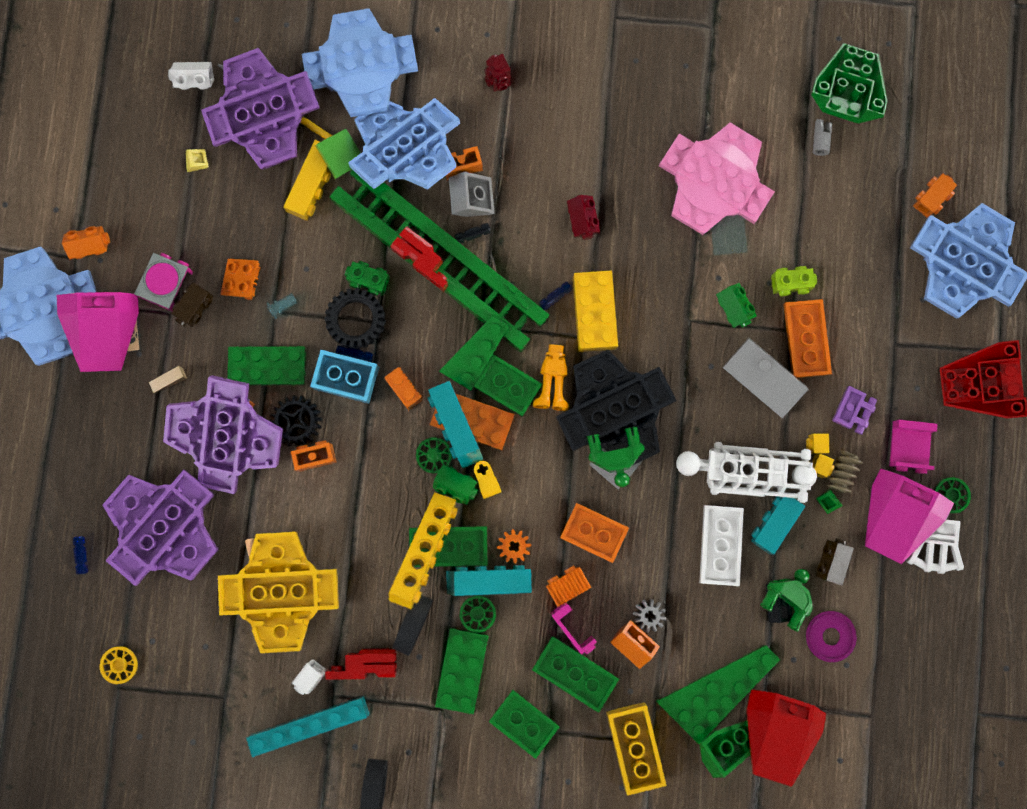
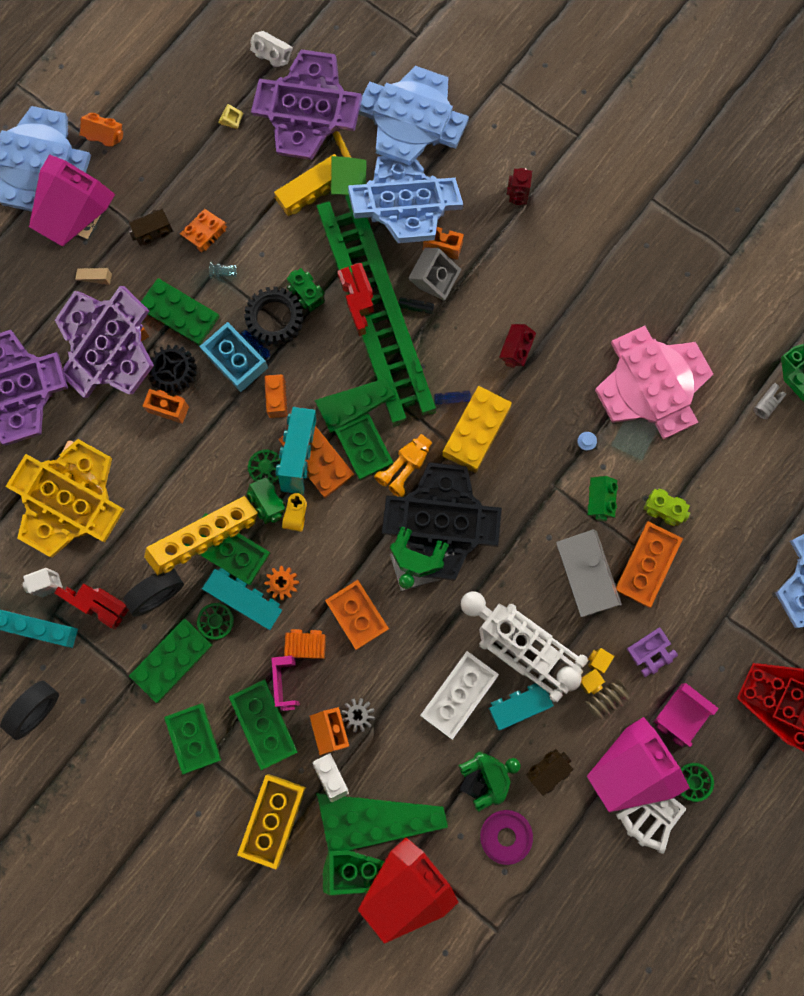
camera: 40 degrees right, 5 degrees down
(162, 280) = (140, 193): panel -> none
(661, 681) = (330, 777): none -> white brick
(692, 264) = (587, 441): none -> light blue plate
(829, 501) = (579, 717): green slope -> none

